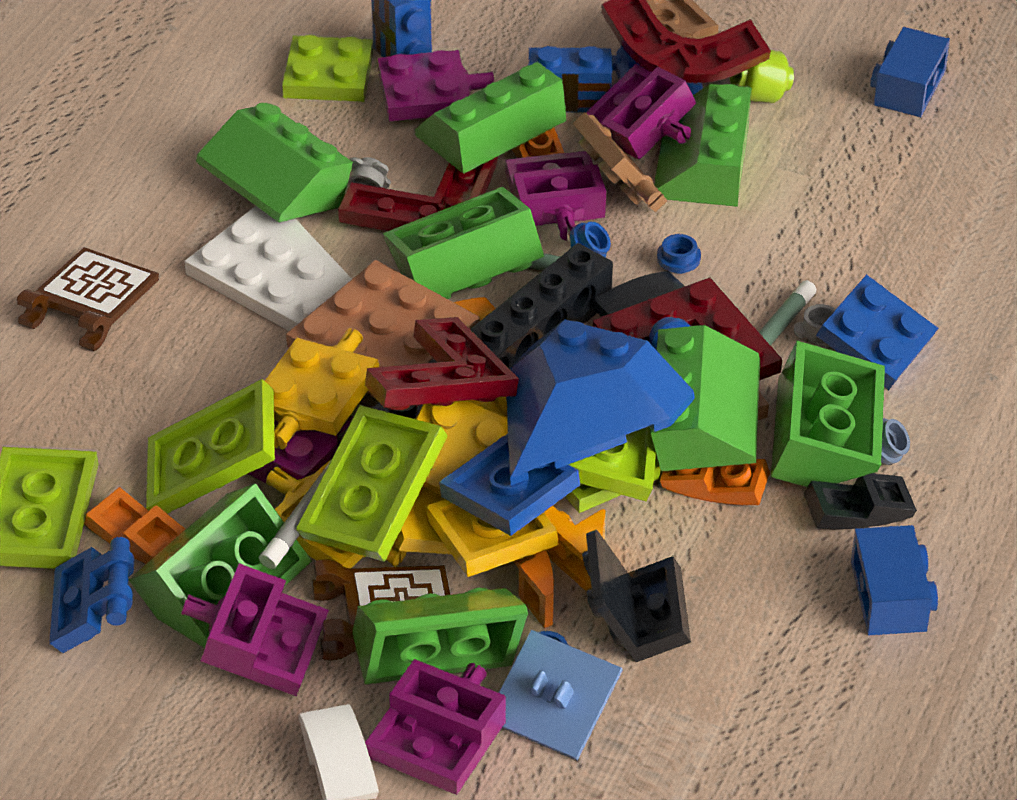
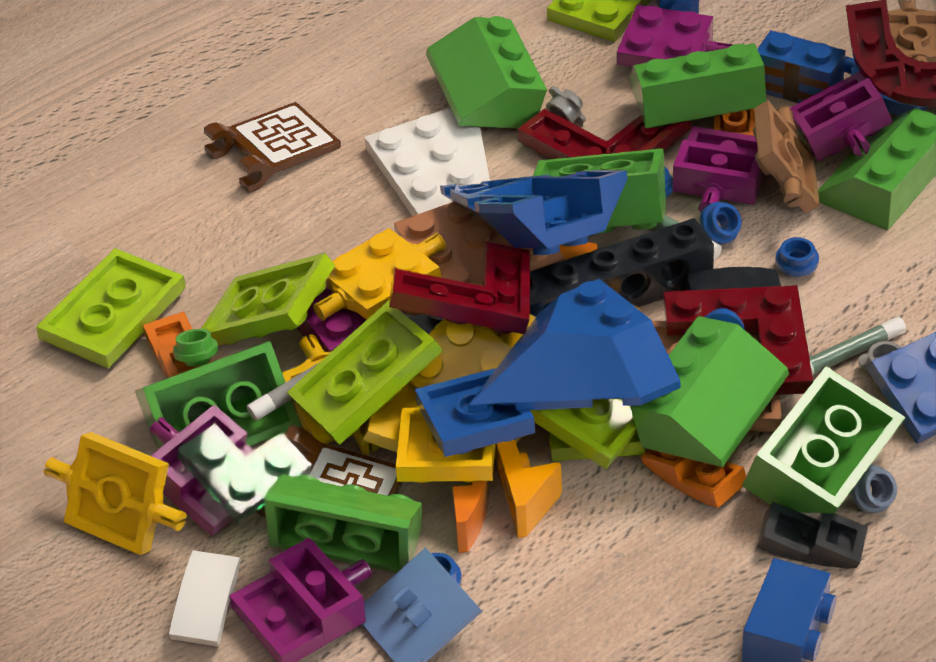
camera: 30 degrees right, 0 degrees up
(82, 599) = (99, 392): blue plate -> none
(167, 516) = (195, 347): none -> bright green plate
(186, 684) = (115, 493): none -> yellow plate
(302, 628) = (237, 479): none -> clear green plate
(437, 276) = (542, 208): none -> blue wedge
(640, 606) = (530, 556): black bracket -> none

